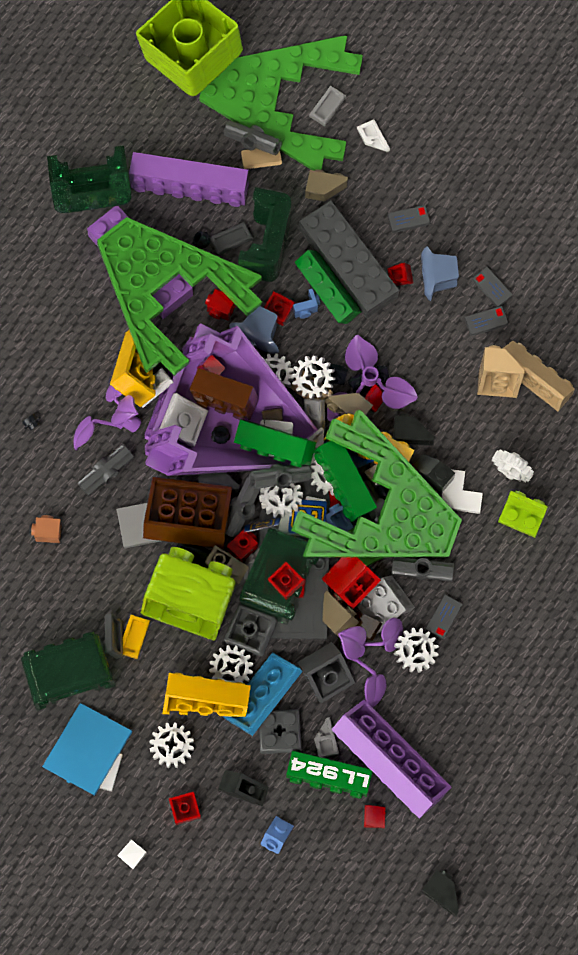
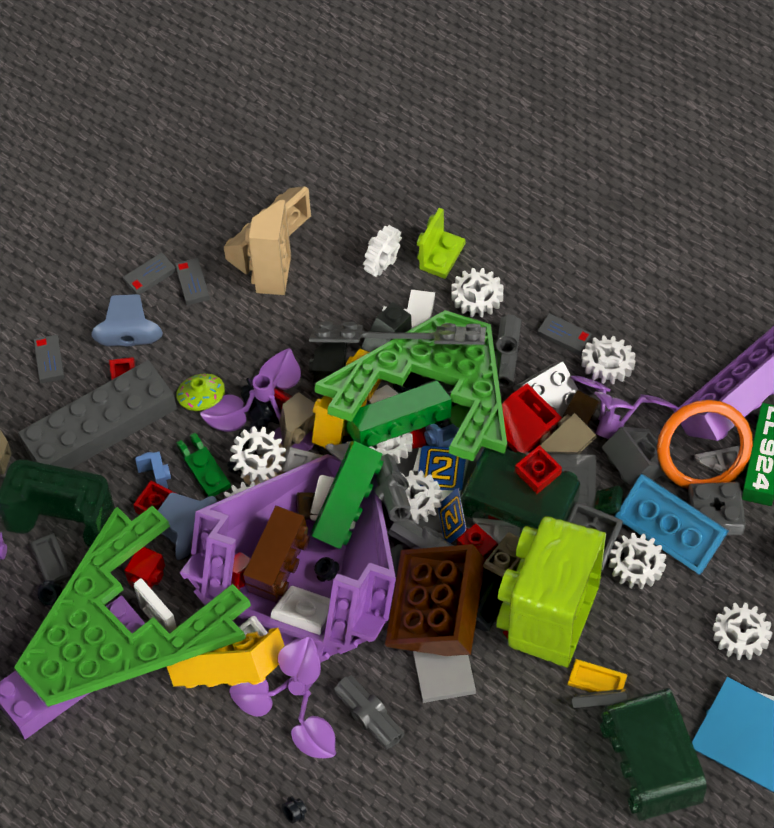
camera: 85 degrees left, 15 degrees down
(47, 529) = (451, 785): nougat brick -> none
(181, 313) = (153, 606): none -> white tile
(205, 696) = (681, 584): yellow wedge -> none
(284, 647) = (609, 500): none -> clear green tile
(312, 341) = (204, 467): none -> green hinge
(328, 286) = (134, 442): green brick -> none
(346, 712) = (686, 411): none -> orange wedge
(377, 341) = (200, 392): none -> lime dish
(421, 520) = (445, 334): none -> dark grey hinge
(472, 547) = (477, 292): none -> white gear

